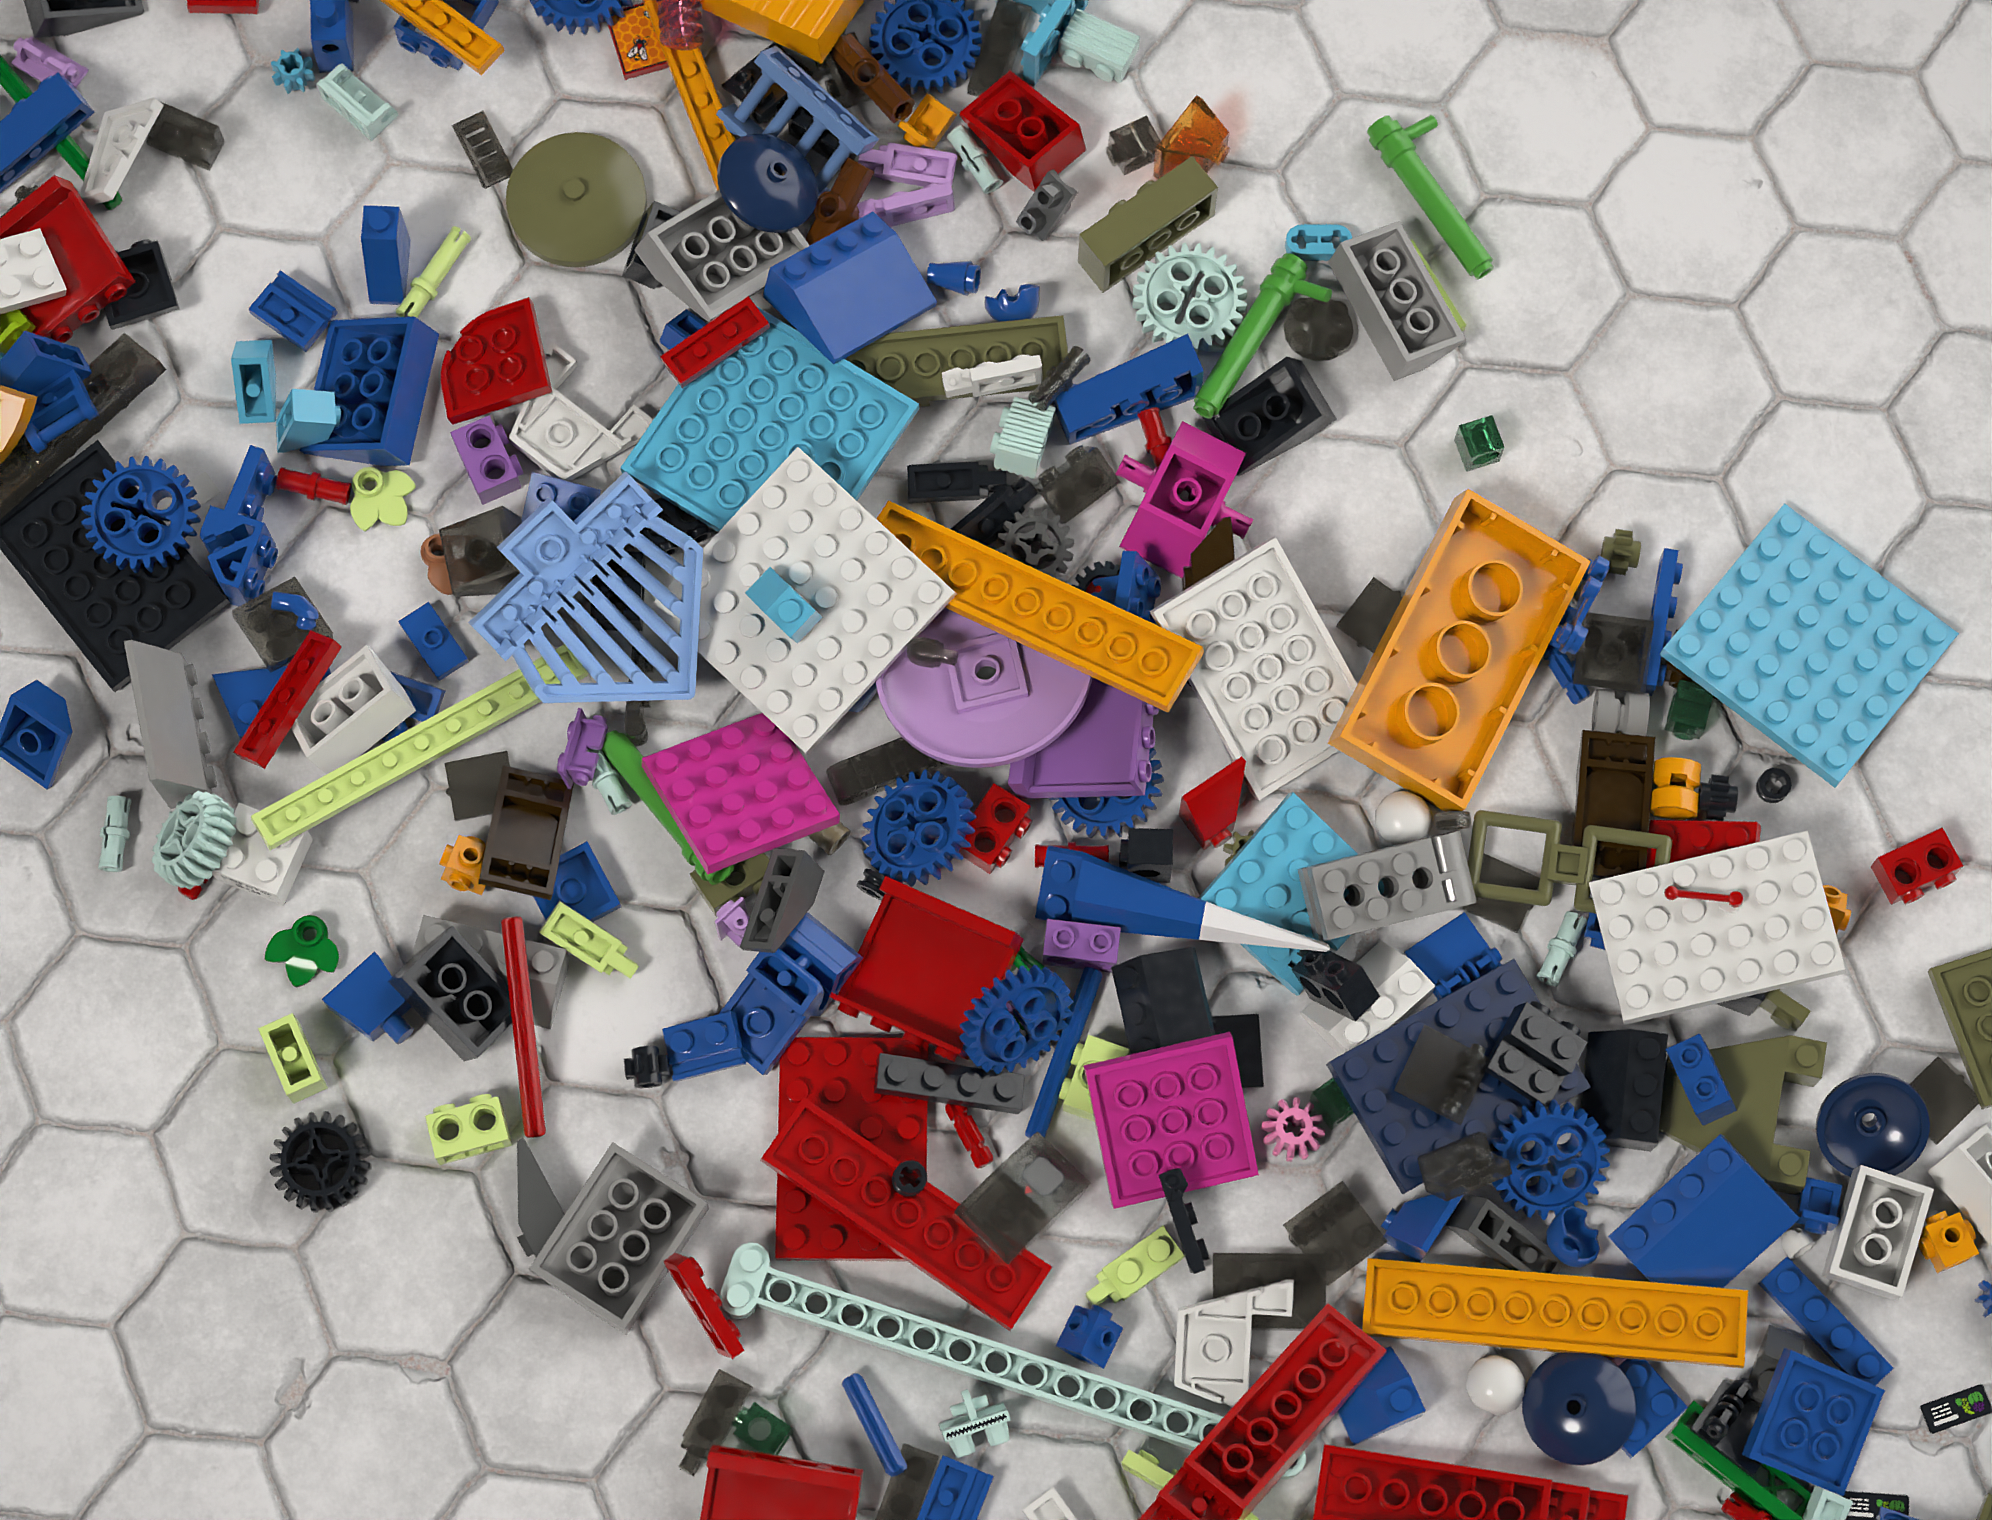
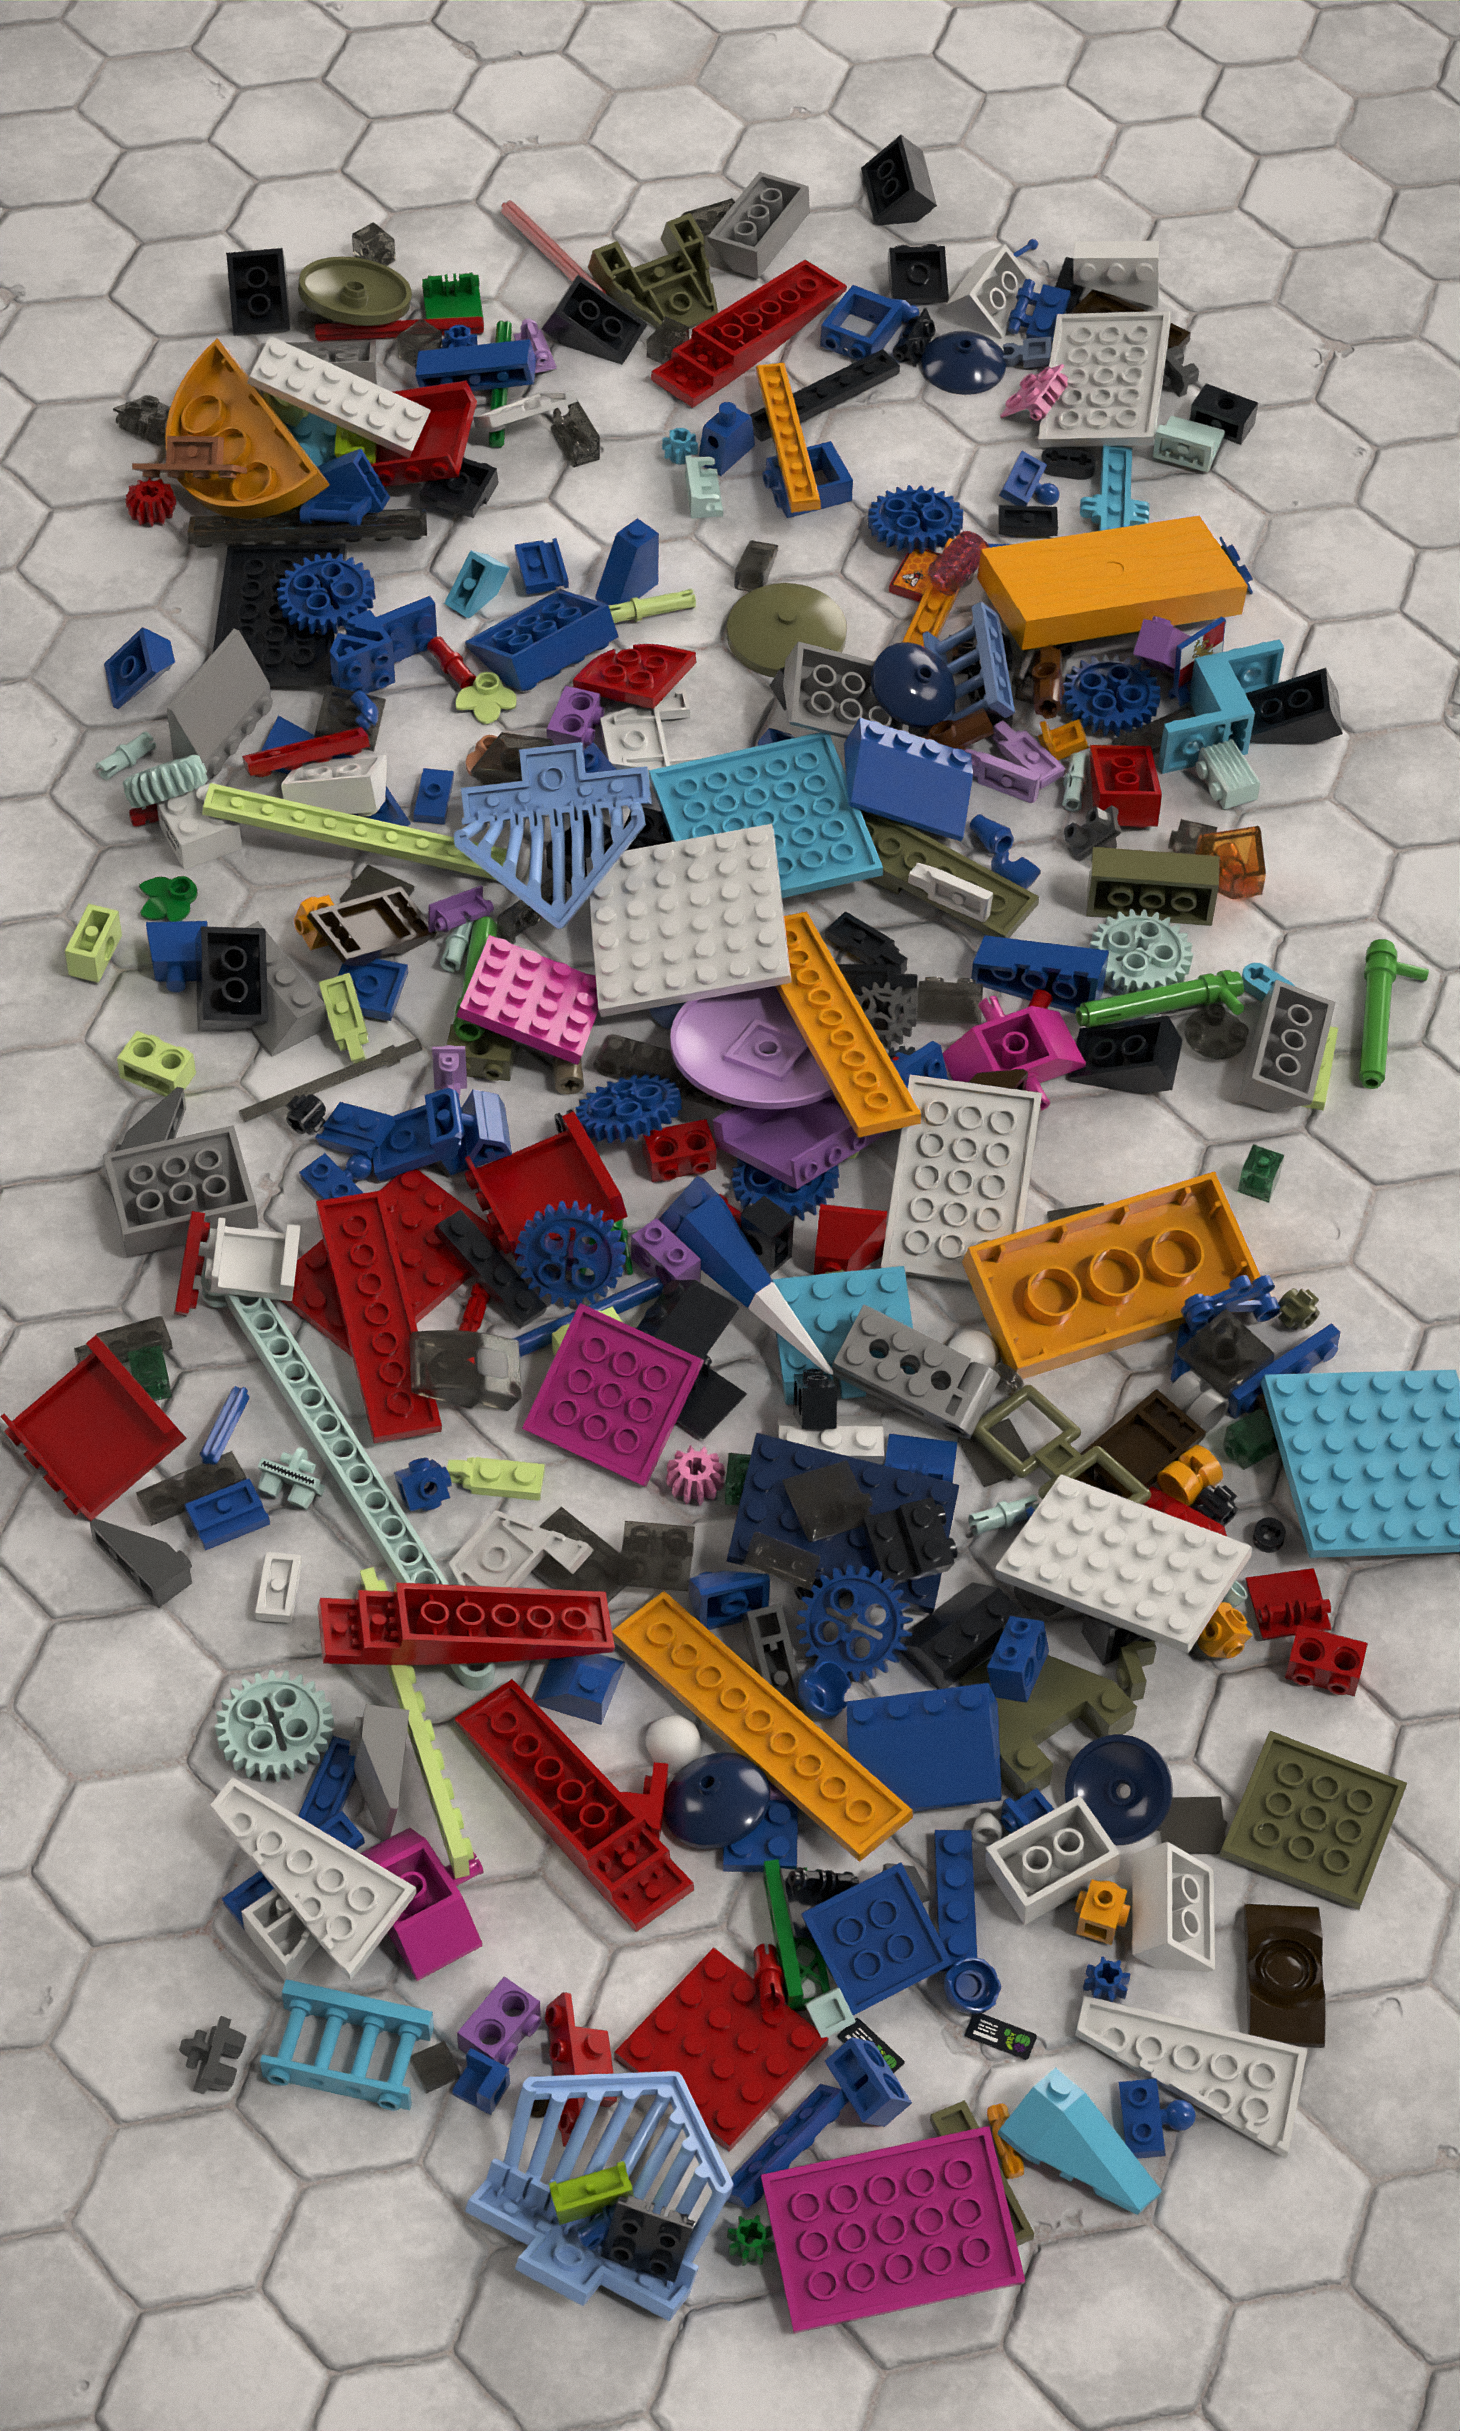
camera: 40 degrees right, 20 degrees down
(304, 1164) = (50, 1023): black gear -> none
(306, 419) = (484, 617): medium azure slope -> none
(523, 1026) = (250, 1026): red axle -> none
(655, 945) = (388, 1056): none -> clear smoke bar
(715, 342) = (782, 739): red plate -> none
(734, 1112) = (330, 1181): none -> blue plate
(761, 1258) = (253, 1261): none -> white panel
(782, 900) = (501, 1070): dark grey slope -> none
(783, 605) = (667, 907): medium azure slope -> none
(908, 1190) = (390, 1289): black bush -> none
(930, 653) = (738, 1005): clear smoke cylinder -> none
(1022, 438) = (939, 946): light aqua brick -> none
(1059, 378) = (996, 923): clear smoke pin -> none
(1184, 1217) = (558, 1466): black hinge -> none
(1539, 1460) = (652, 1800): none -> red slope
(1734, 899) = (1151, 1545): red hinge -> none
(1844, 835) = (1287, 1601): none -> red hinge
(1911, 1393) = (972, 1986): none -> blue hair

